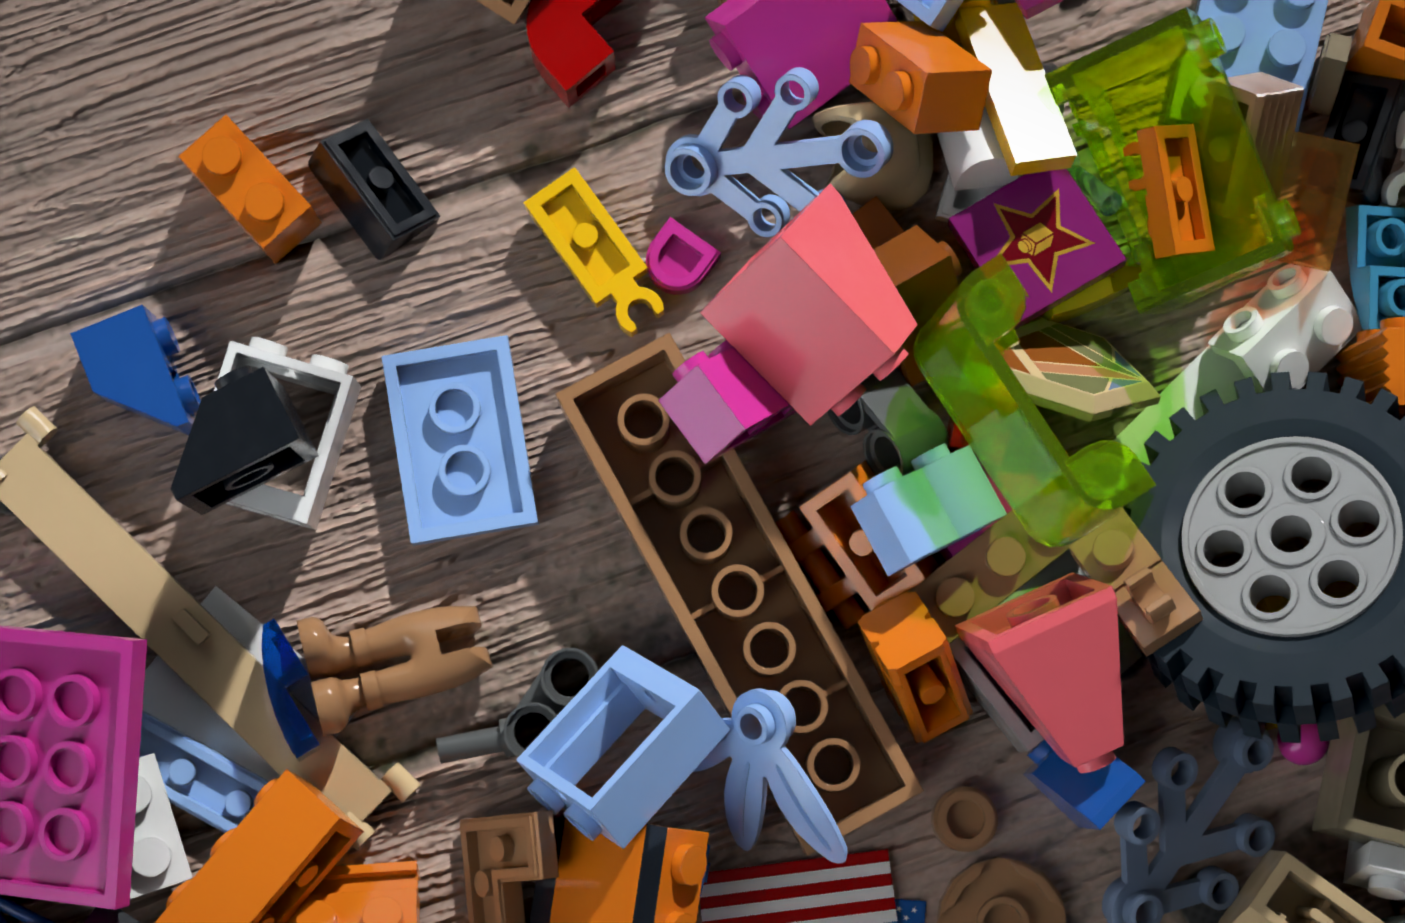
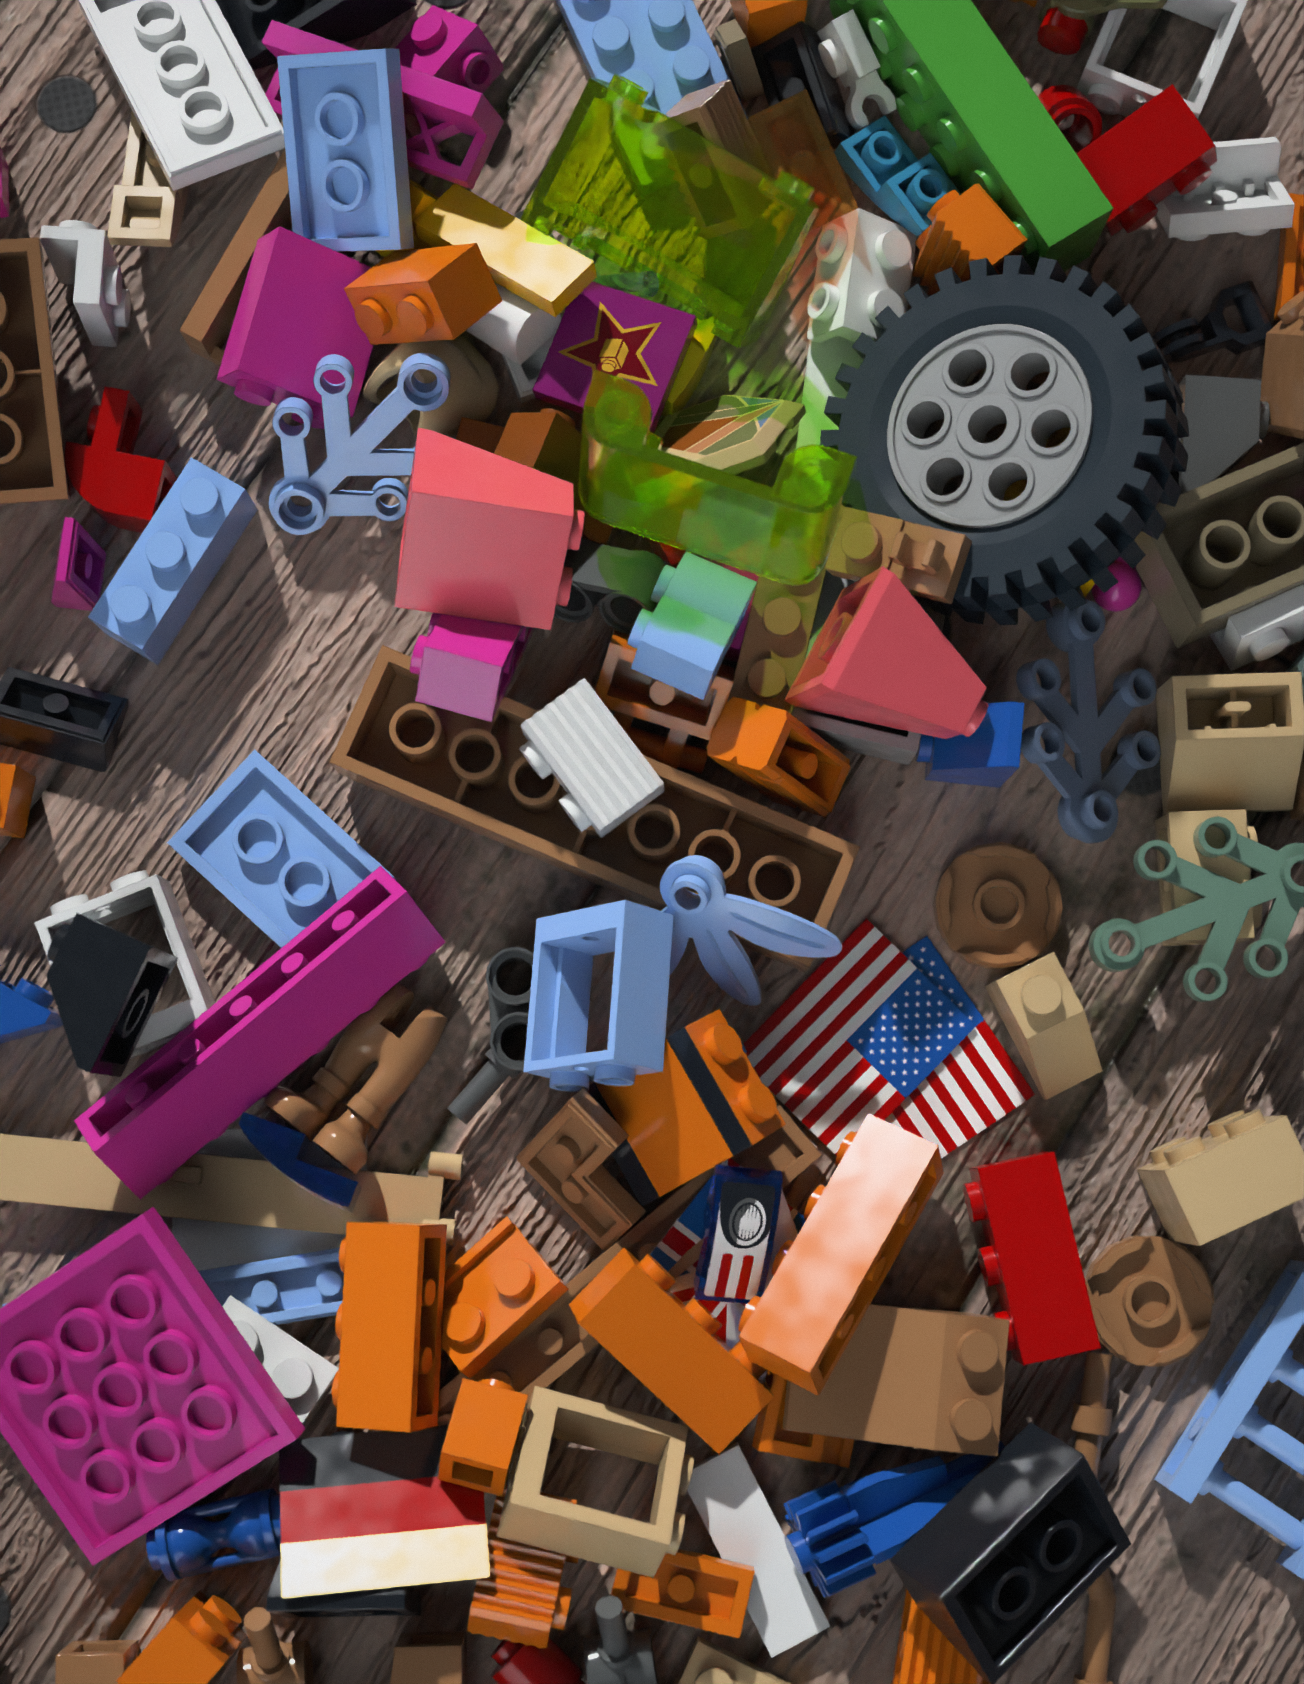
camera: 35 degrees left, 0 degrees up
(335, 565) = (259, 1033): none -> dark pink brick
(480, 85) = (78, 568): none -> dark pink slope
(560, 133) = (174, 561): none -> light blue brick
(592, 246) = (268, 629): yellow plate -> none
(679, 259) = (345, 587): dark pink tile -> none
(760, 554) = (590, 759): none -> white brick
(964, 819) = (907, 849): medium nougat tile -> none
(1174, 189) = (692, 234): orange plate -> none

